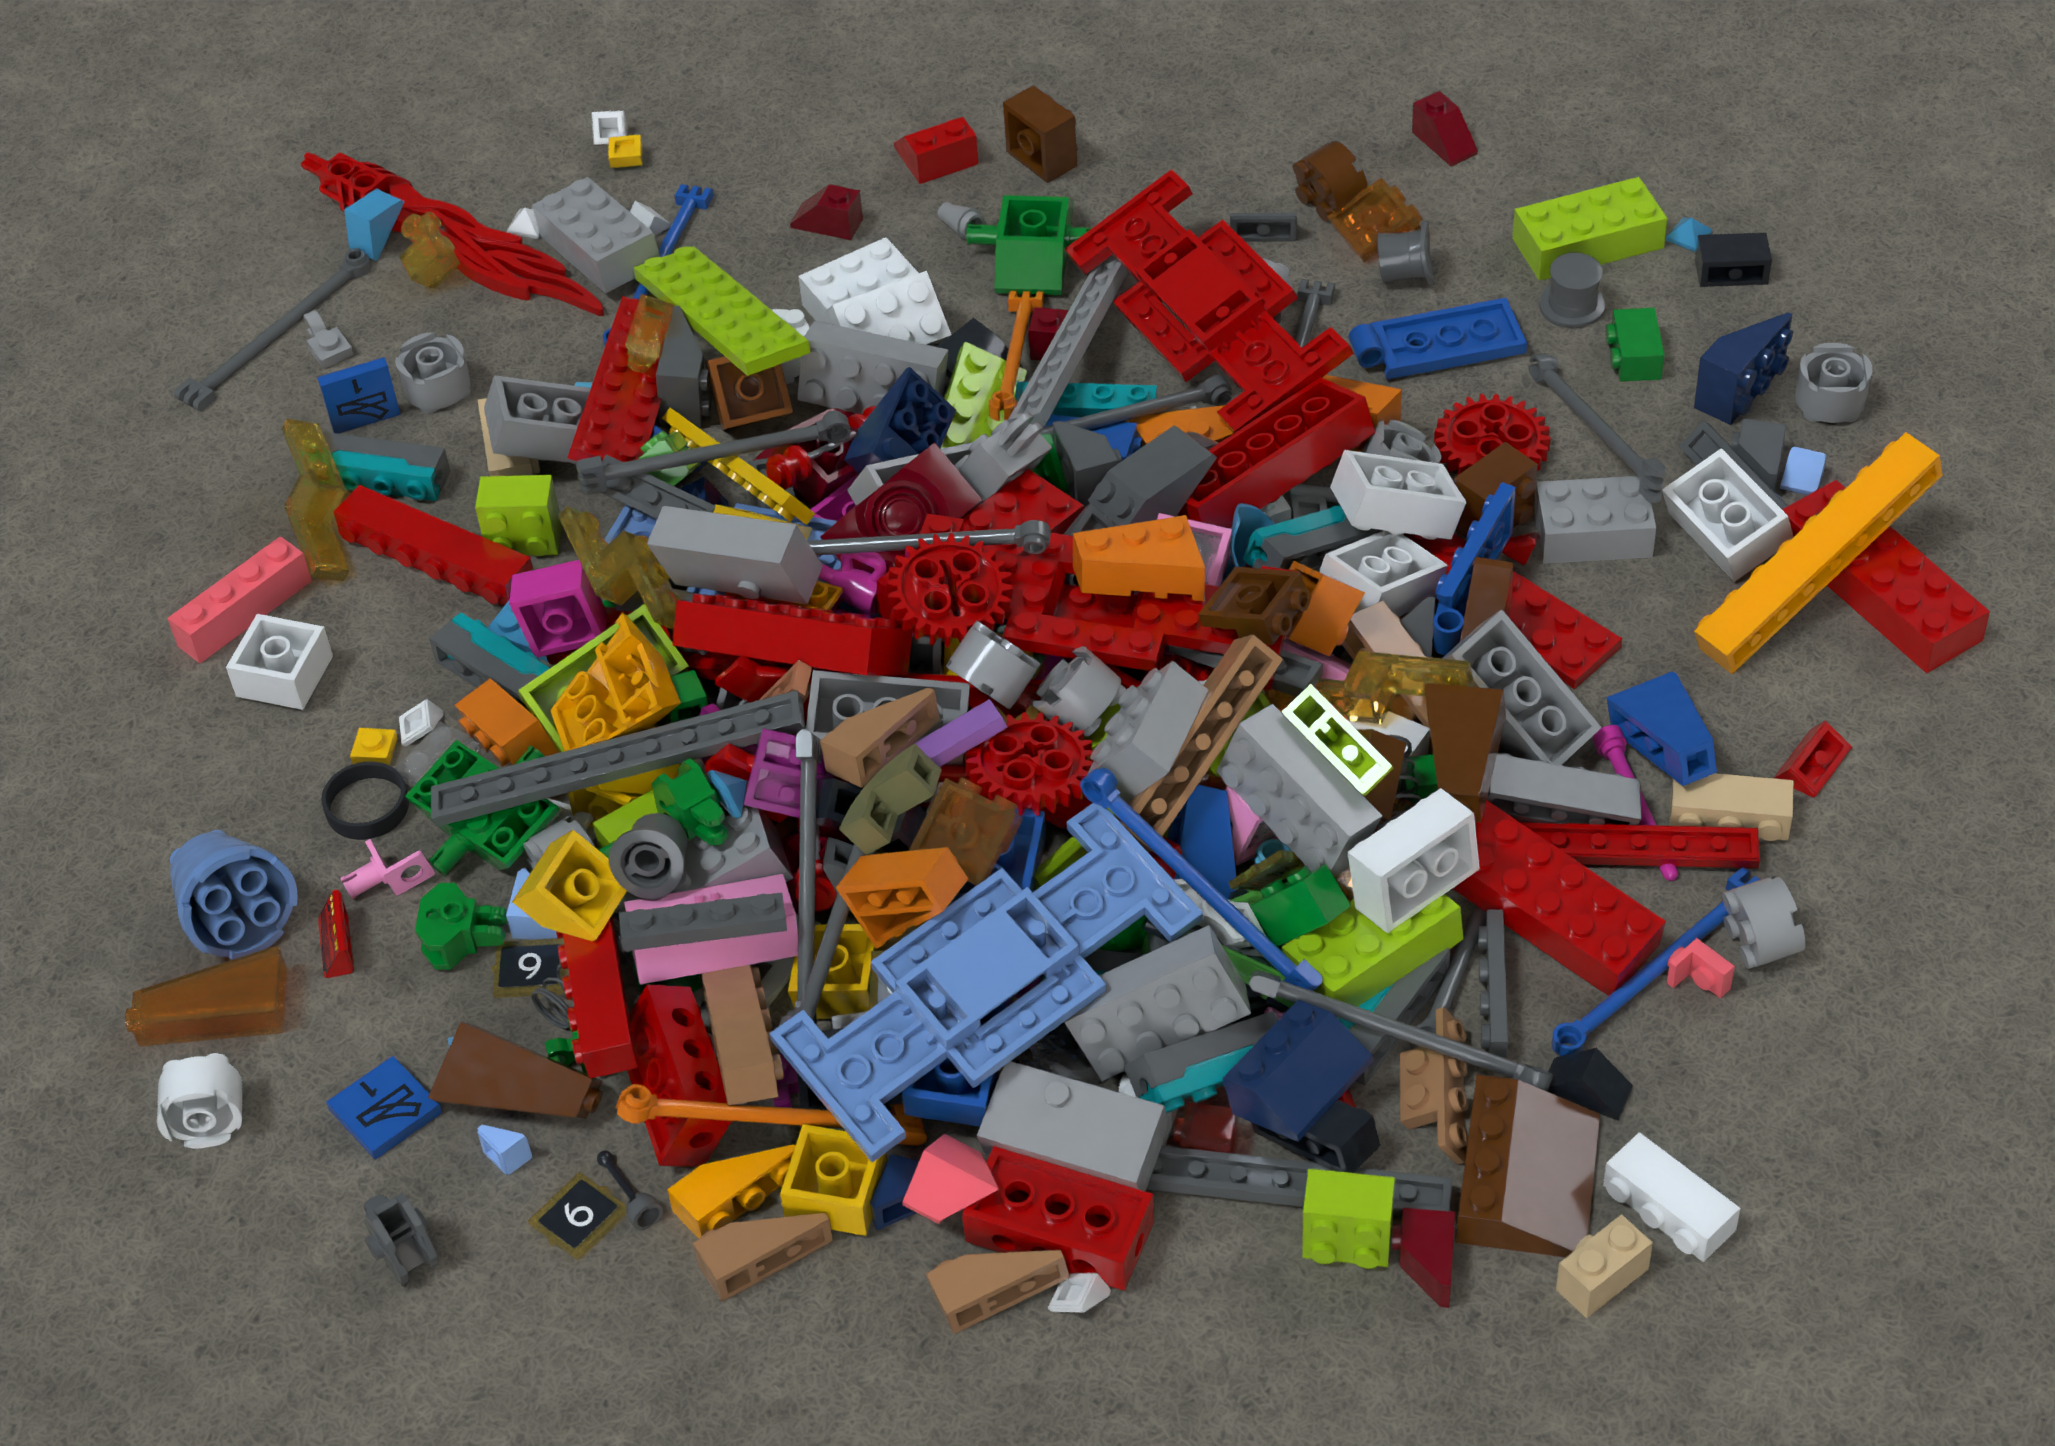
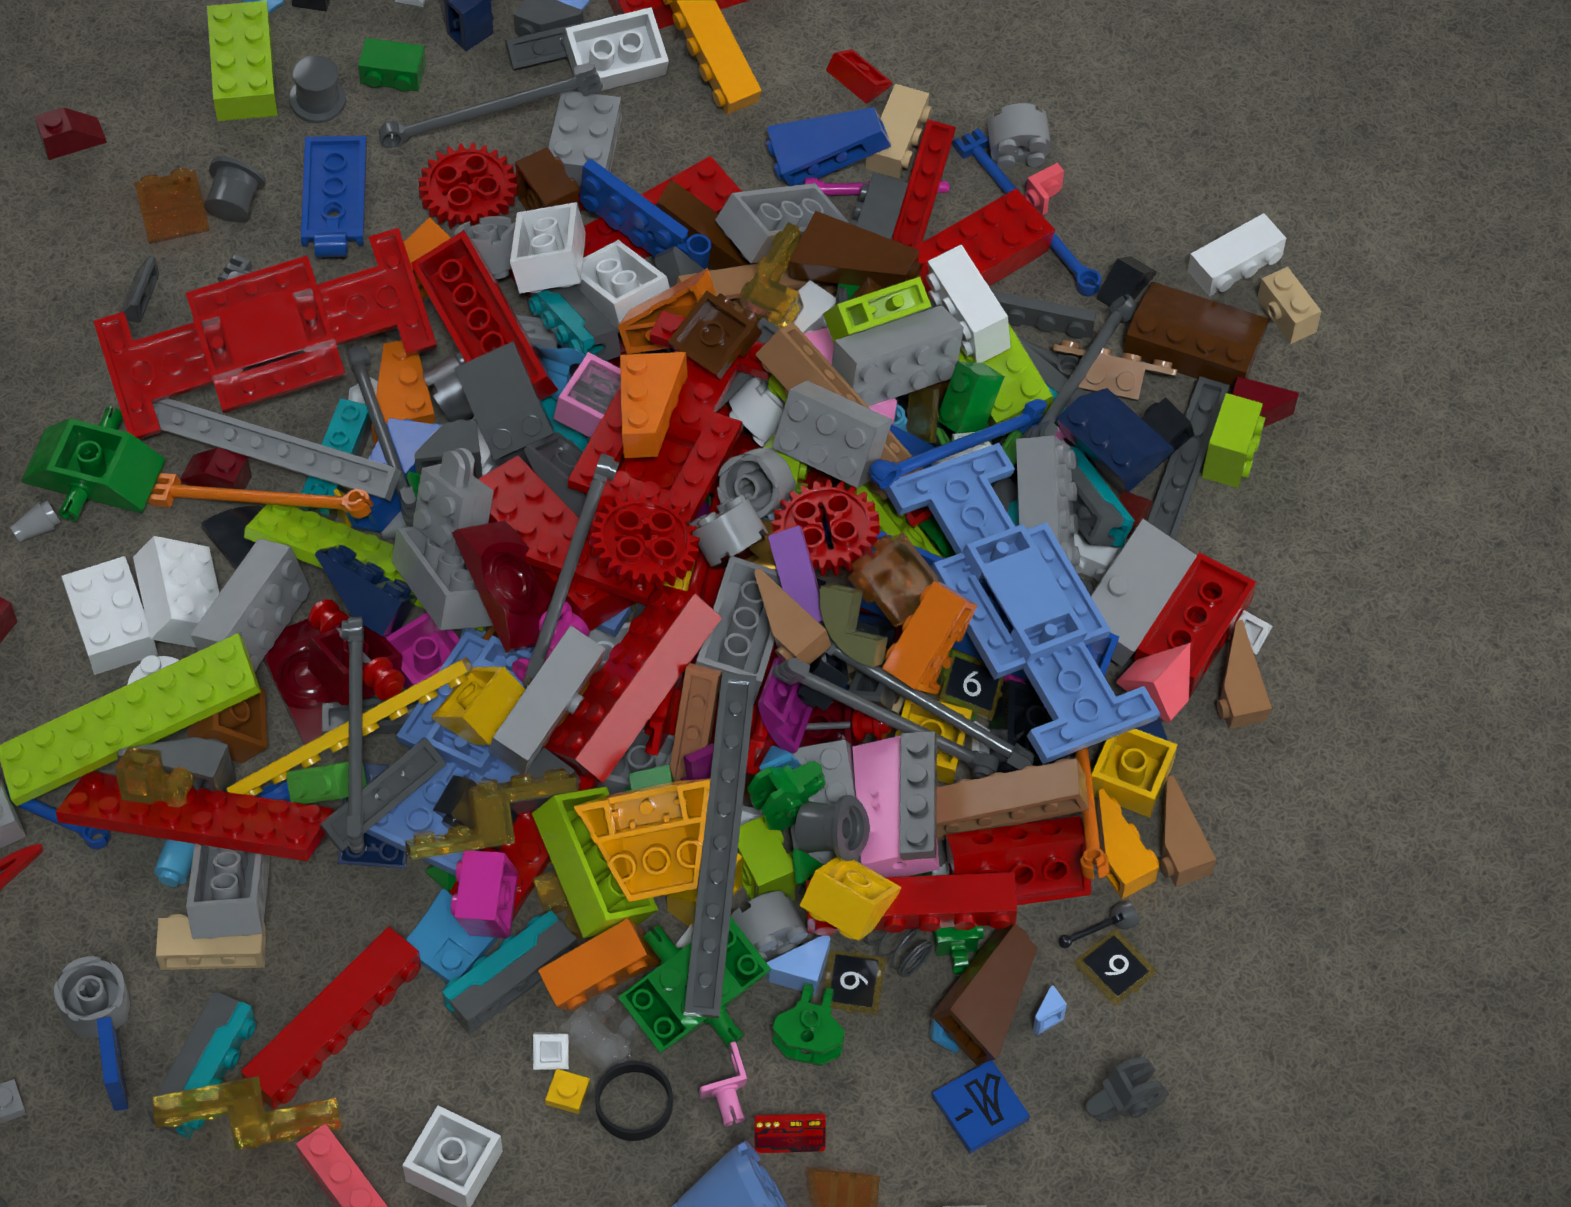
camera: 85 degrees left, 10 degrees up
(520, 513) = (331, 930): lime brick -> none
(1328, 178) = (113, 223): reddish brown brick -> none

